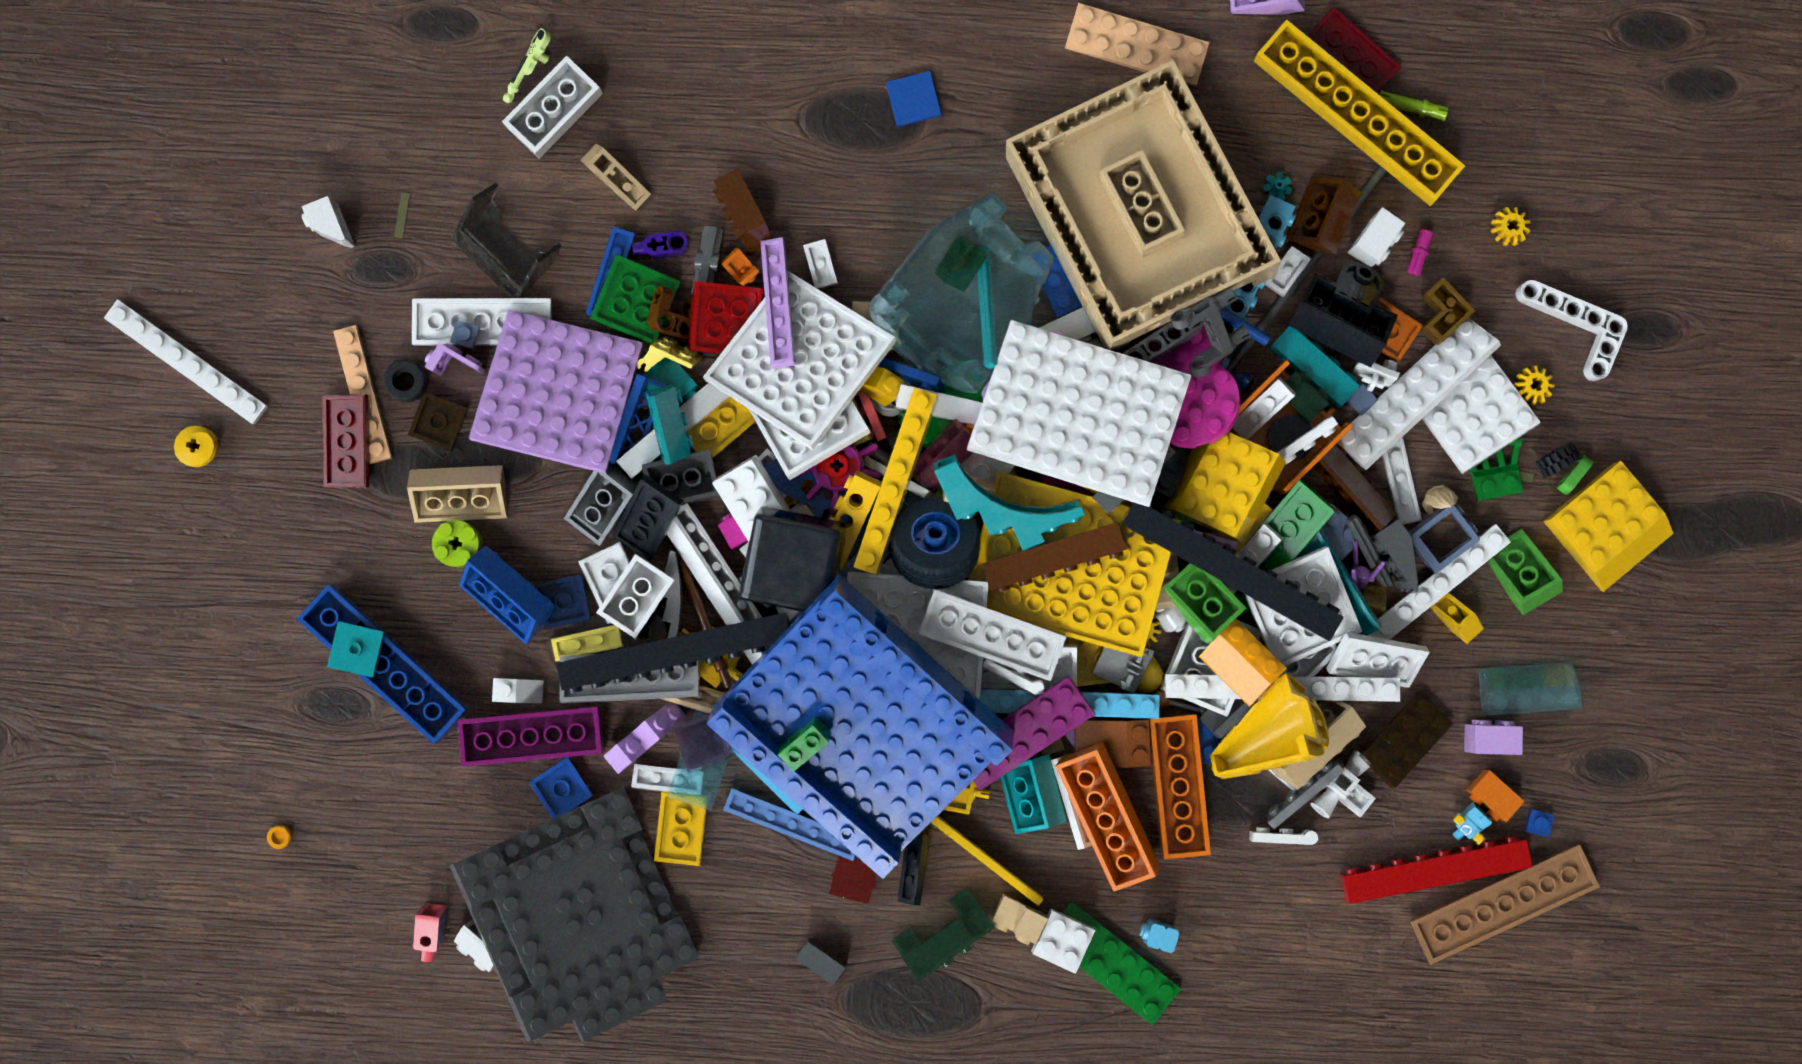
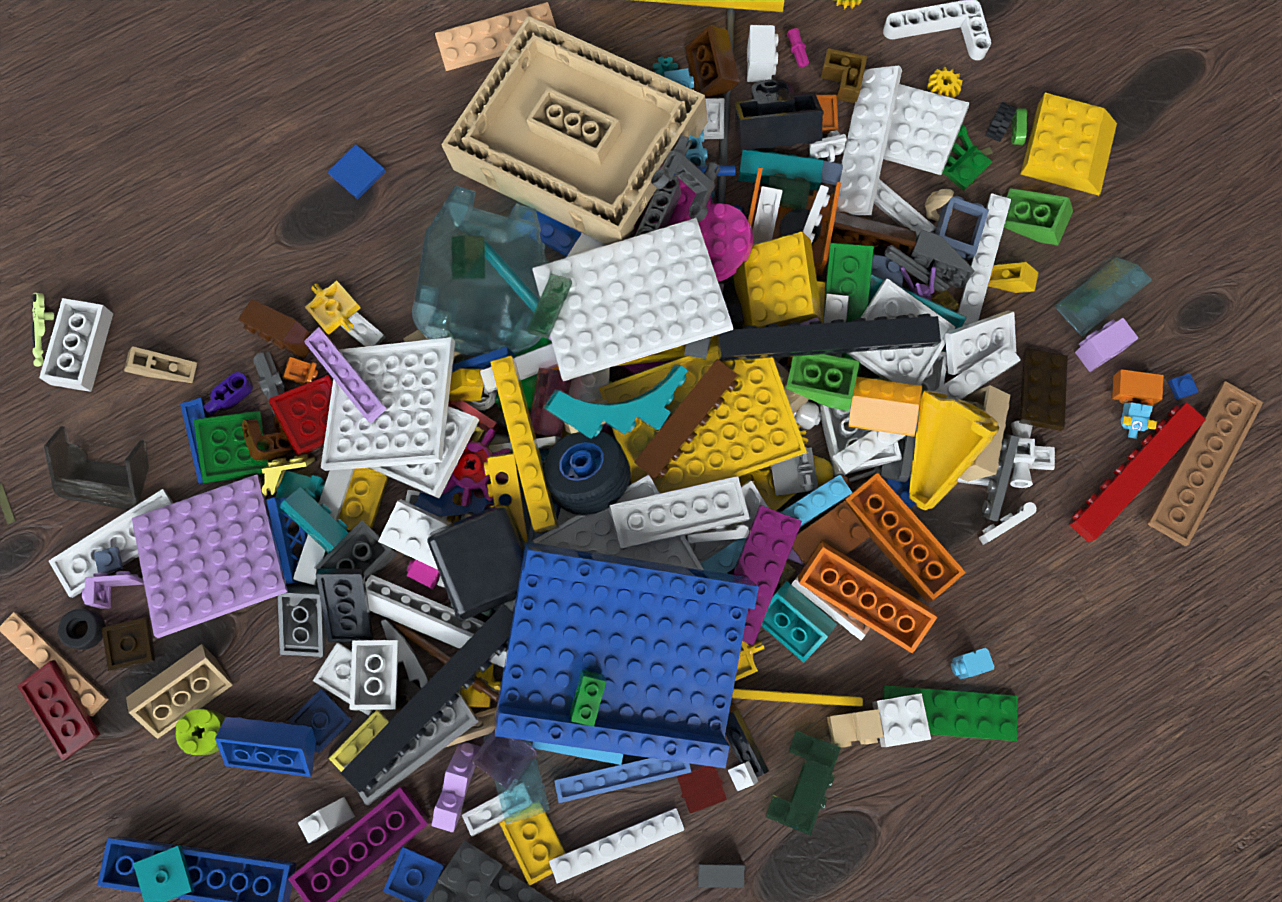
camera: 30 degrees left, 10 degrees down
(749, 878) = (616, 845): none -> white plate
(806, 225) = (332, 307): none -> yellow plate
(895, 894) = (743, 776): none -> white plate
(1001, 371) = (549, 306): none -> clear green plate

